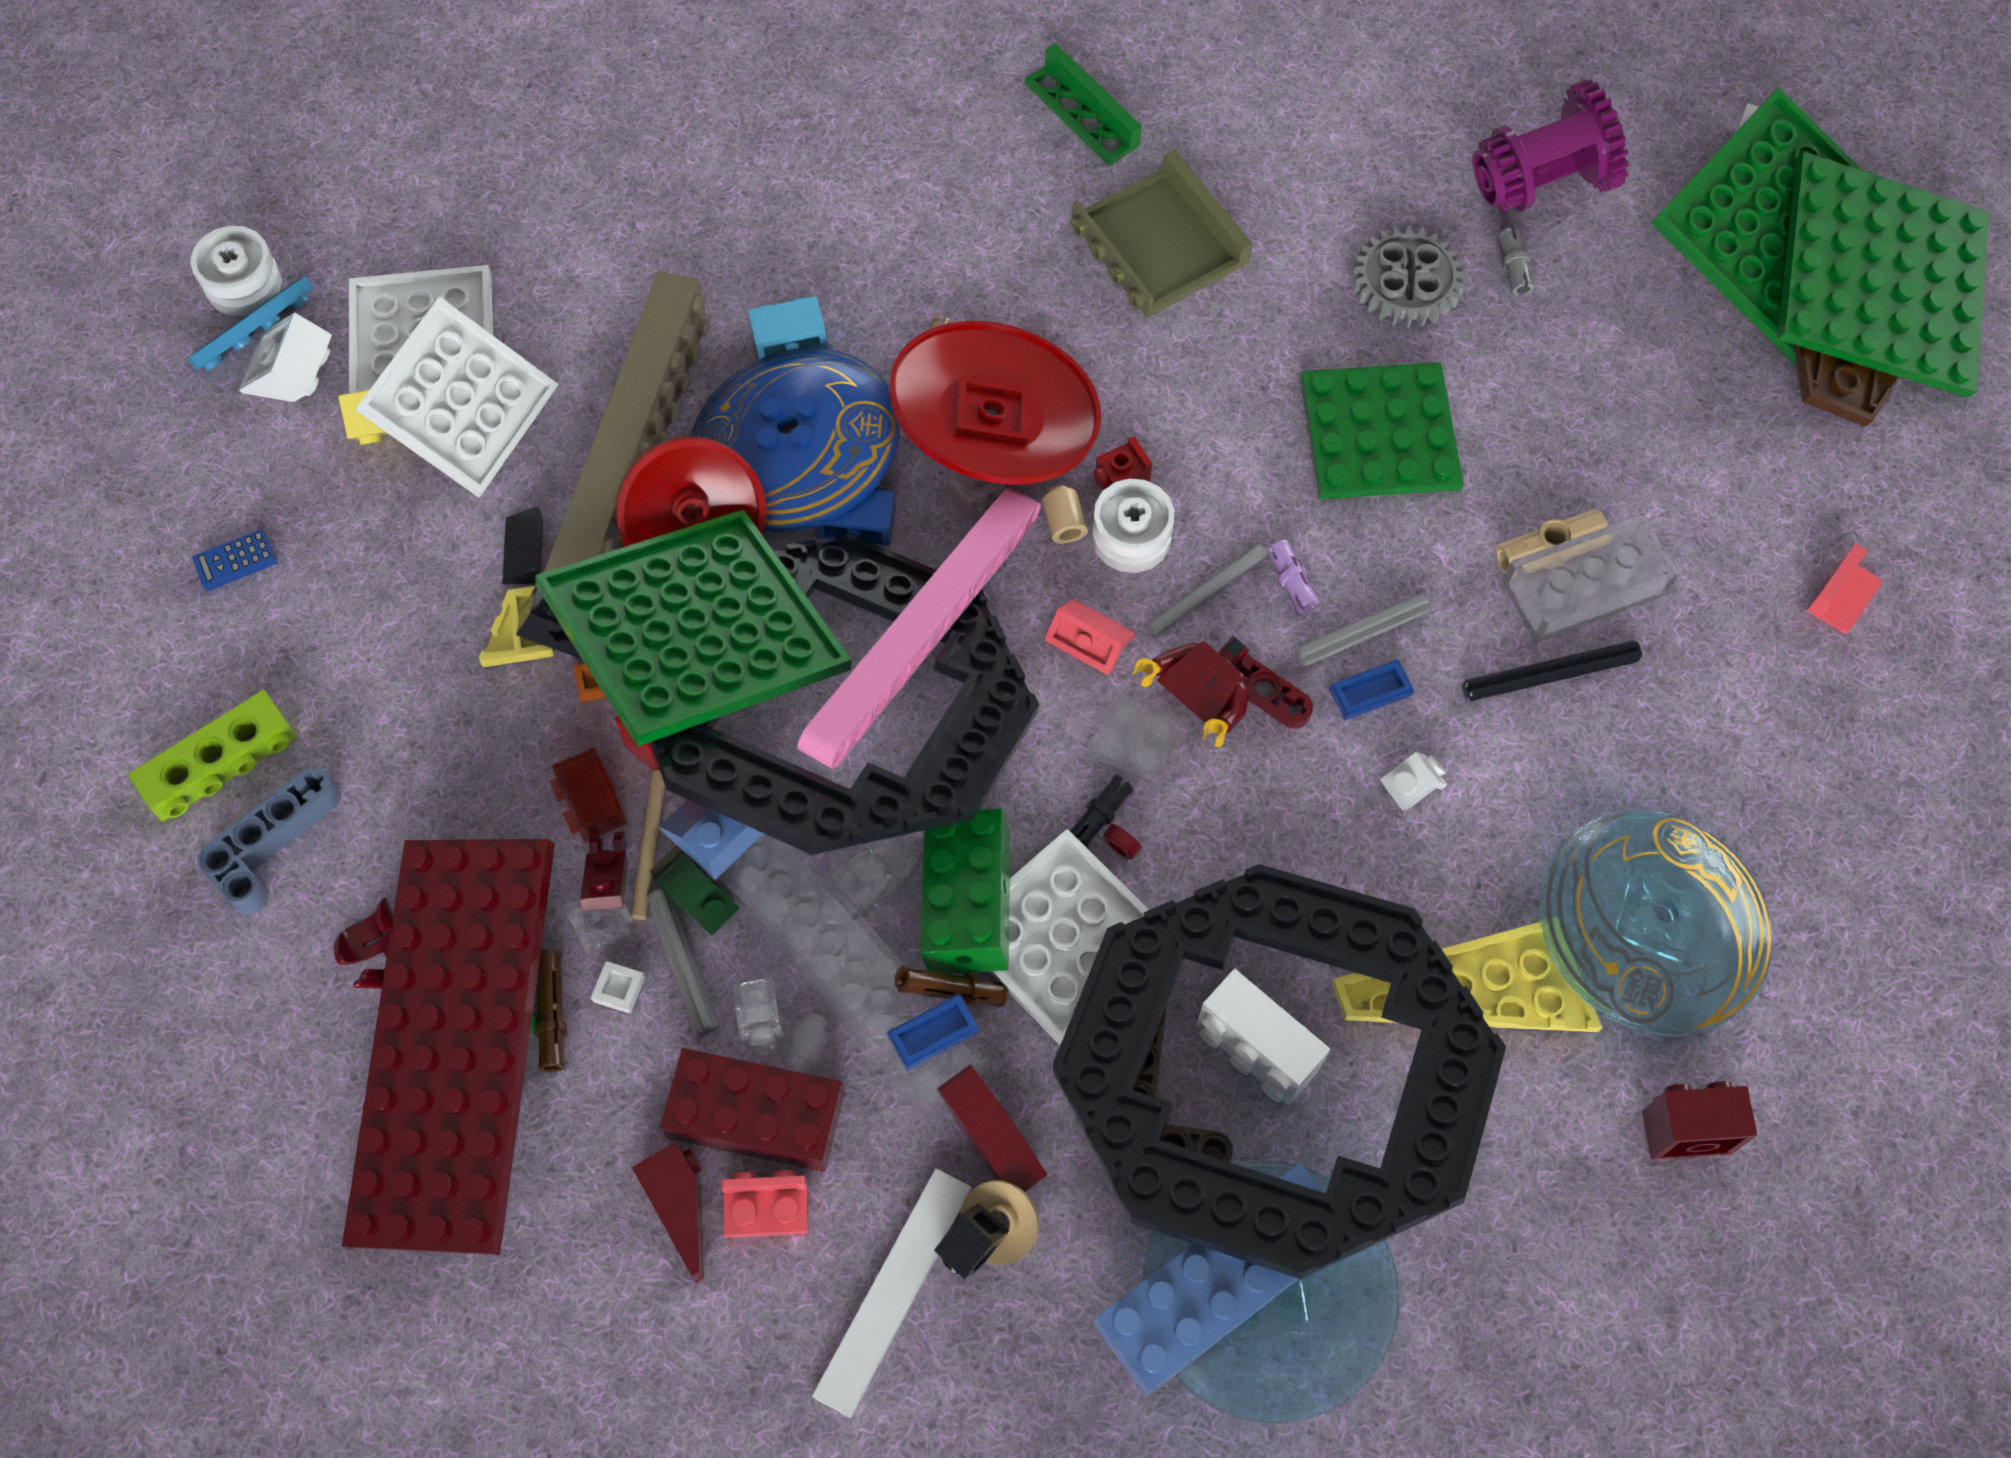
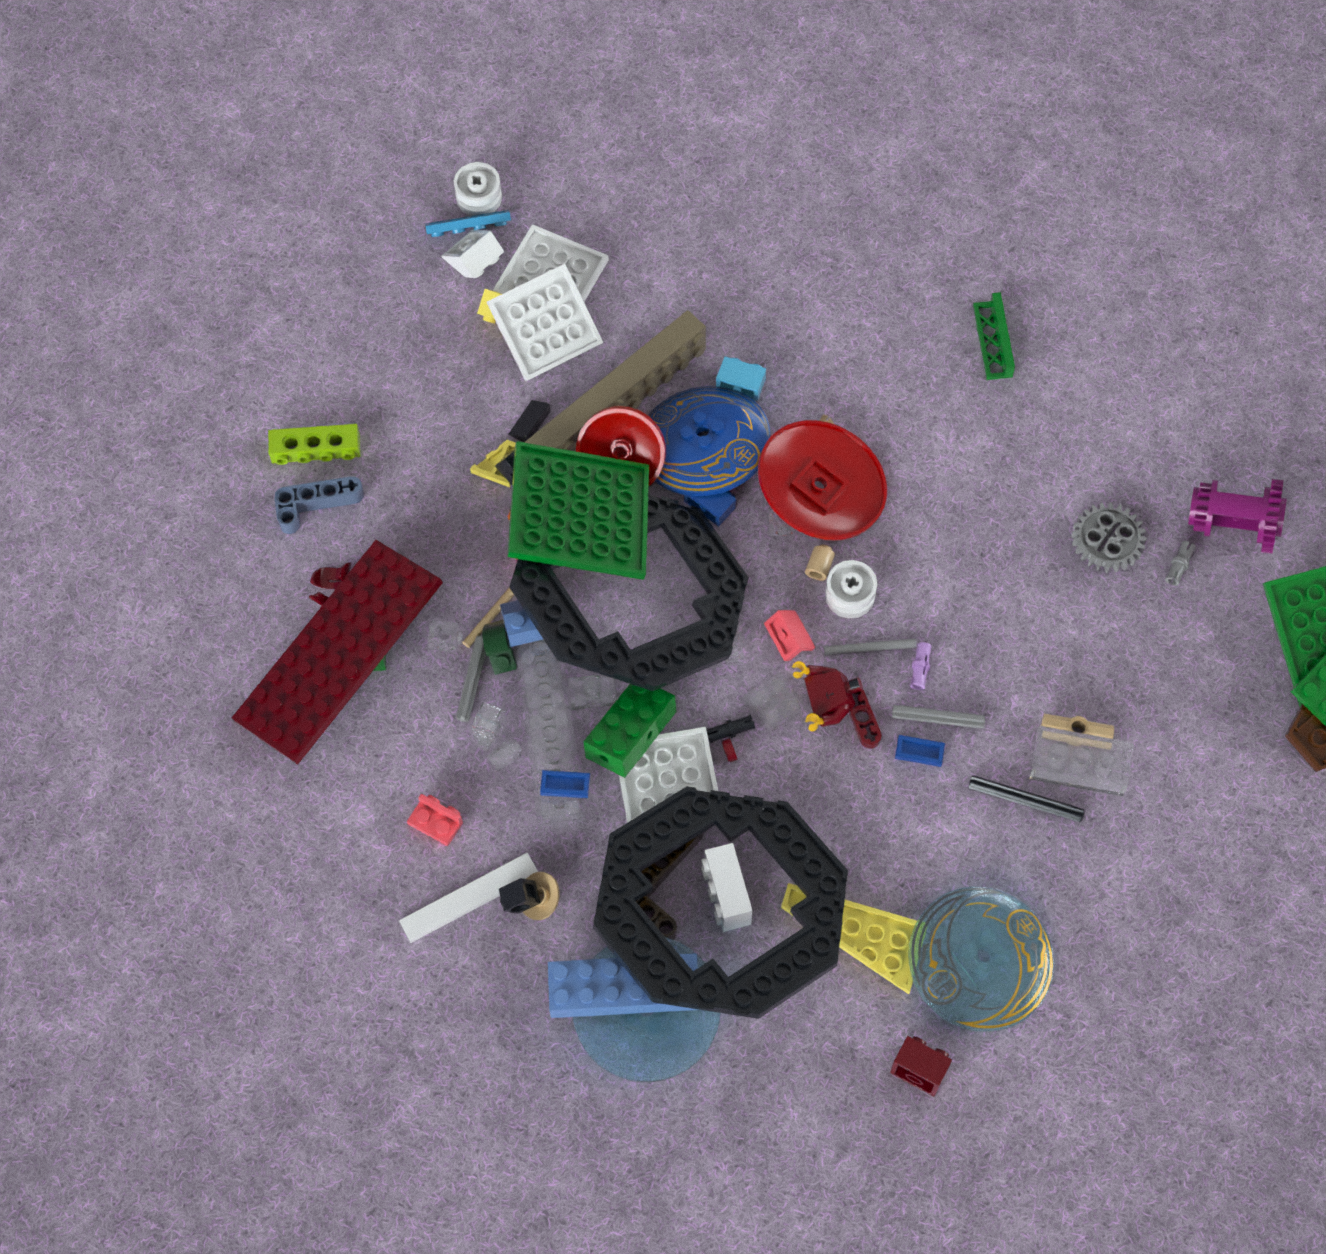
camera: 35 degrees right, 0 degrees up
(234, 560) = (384, 346): blue tile -> none
(550, 1015) = (390, 672): reddish brown pin -> none
(588, 795) = (480, 568): clear red brick -> none
(604, 874) = (461, 612): dark red hinge -> none
(618, 987) = (433, 673): white plate -> none
(676, 1197) = (395, 791): dark red slope -> none
(753, 1109) = (458, 770): dark red brick -> none
(918, 629) = (697, 577): bright pink beam -> none
(945, 986) = (598, 774): reddish brown pin -> none
(991, 1130) = (563, 849): dark red slope -> none
(1131, 455) = (875, 559): red brick -> none
(1163, 236) = (984, 438): olive panel -> none
(1381, 430) = (1029, 615): green plate -> none
(1414, 779) = (907, 810): white bracket -> none
(1846, 592) = (1227, 853): coral panel -> none

